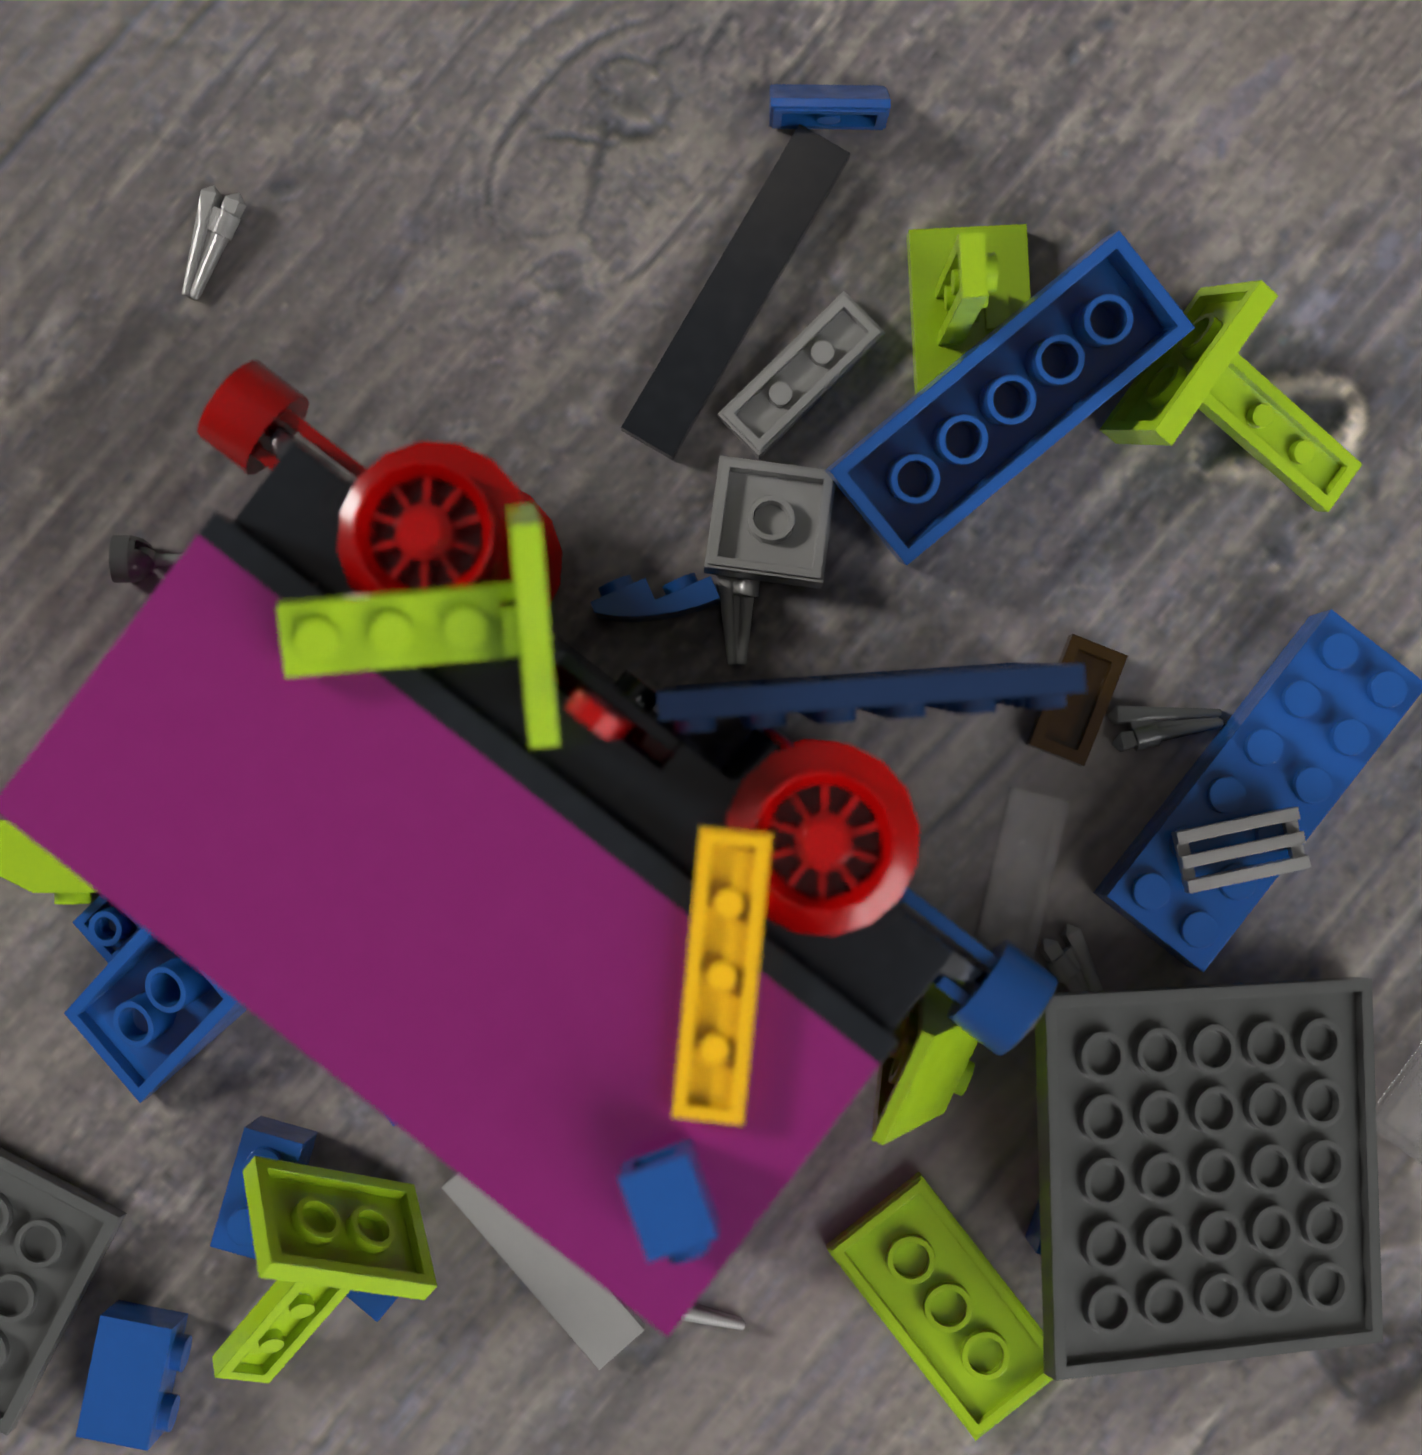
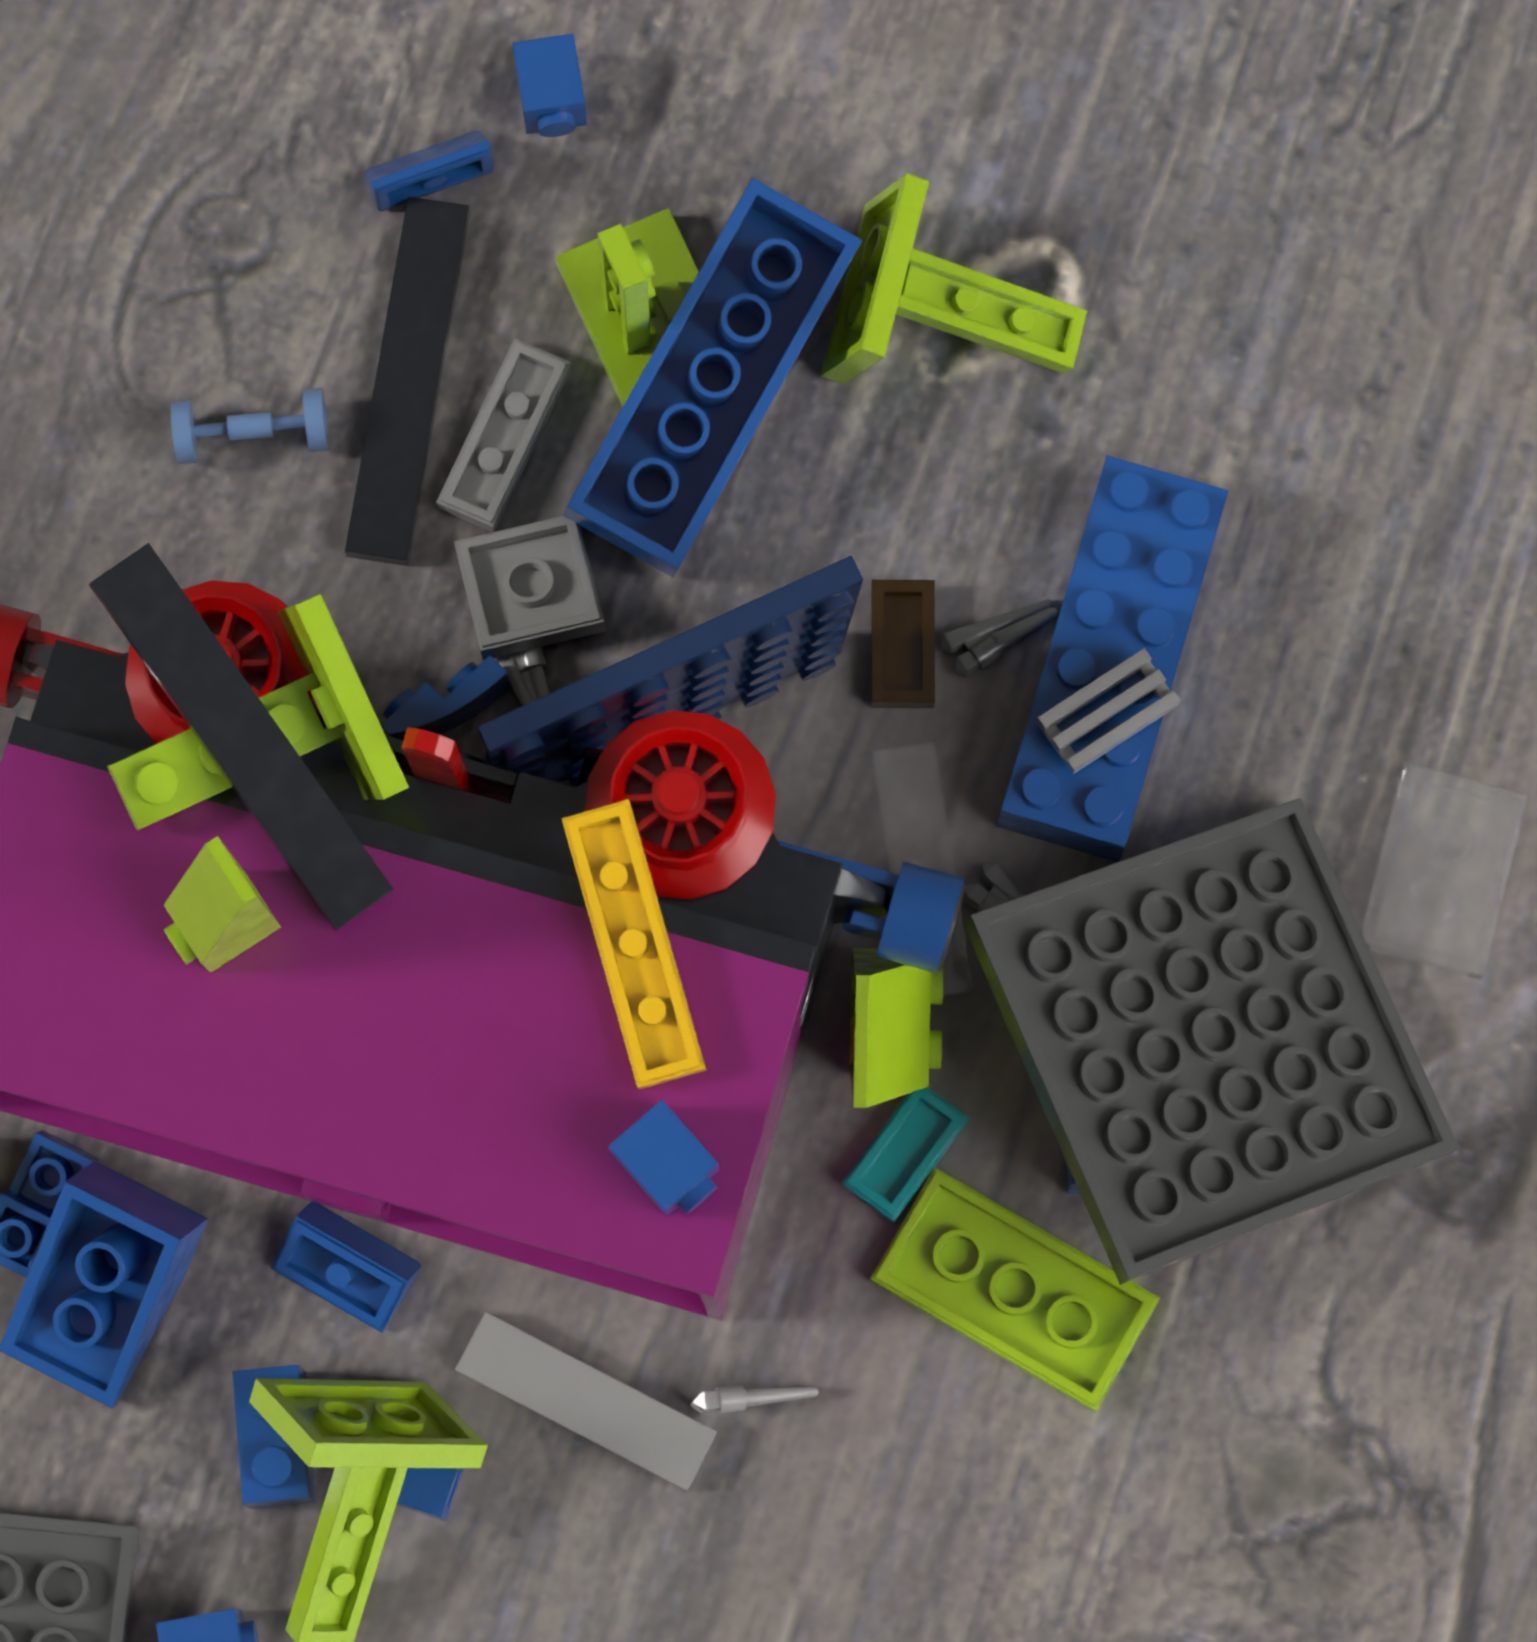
camera: 25 degrees left, 10 degrees down
(331, 793) = (216, 909): none -> lime slope
(413, 623) = (241, 736): none -> black tile
(522, 265) = (249, 426): none -> medium blue wheel
(882, 1169) = (905, 1152): none -> teal tile
(965, 69) = (550, 85): none -> blue brick

